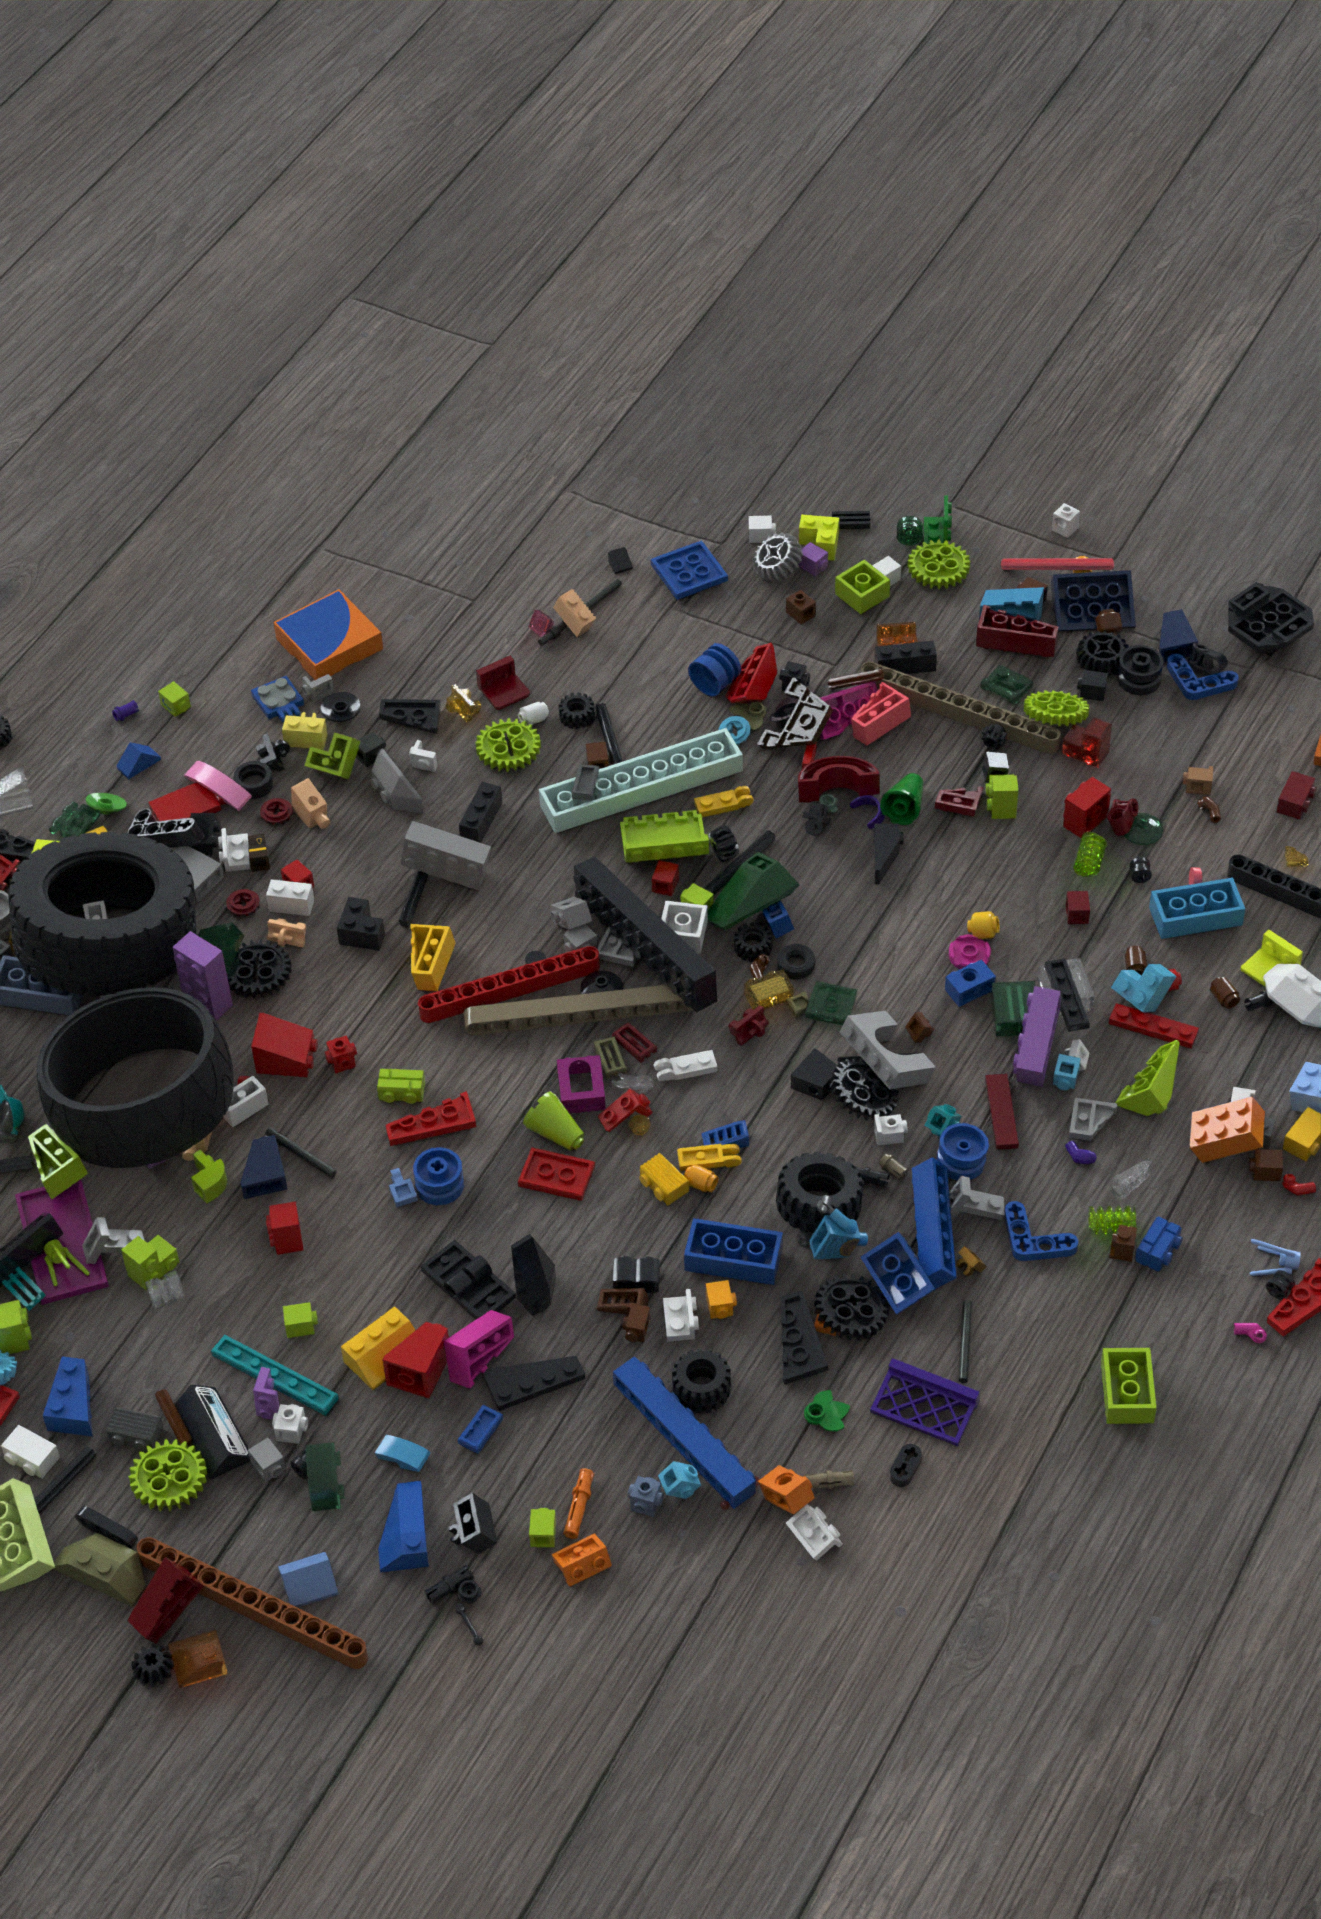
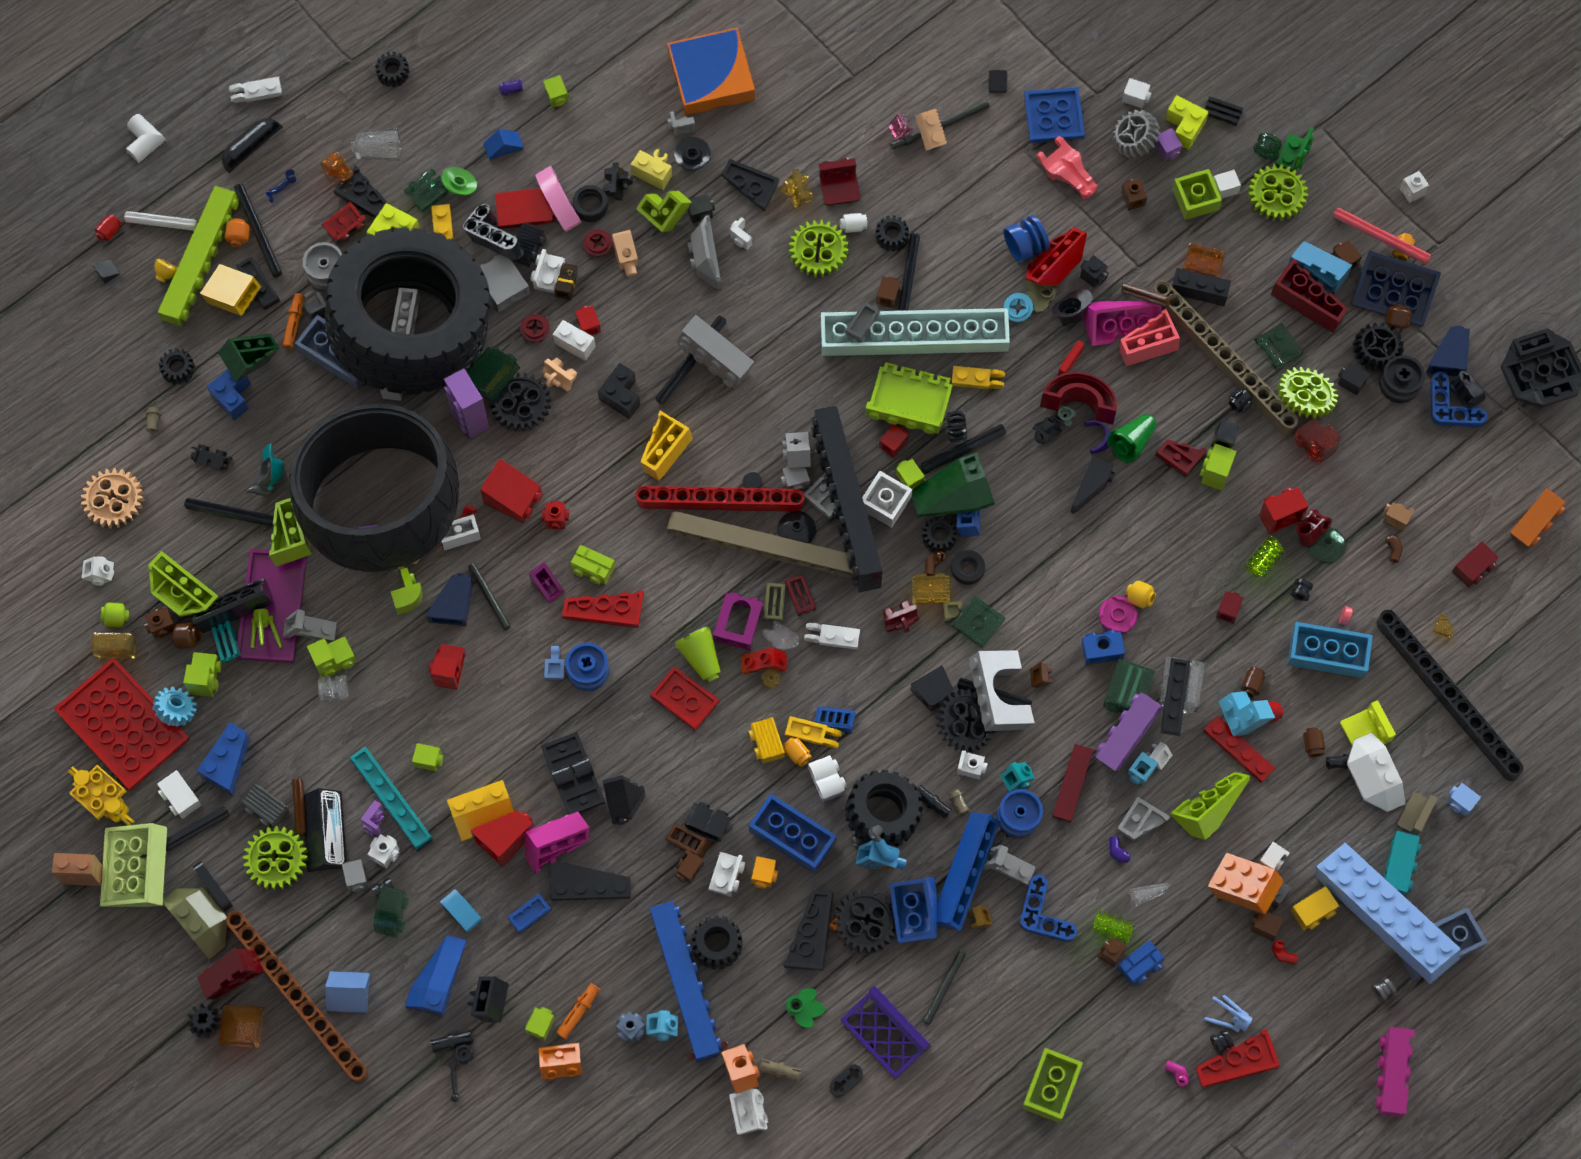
camera: 20 degrees right, 20 degrees up
(278, 698) = (644, 122): piece -> none
(356, 1116) = (545, 582): none -> magenta slope
(481, 812) = (765, 314): black brick -> none
(725, 605) = (1067, 167): none -> coral animal
(744, 1192) = (827, 779): none -> white brick
(804, 723) = (1080, 327): wing -> none

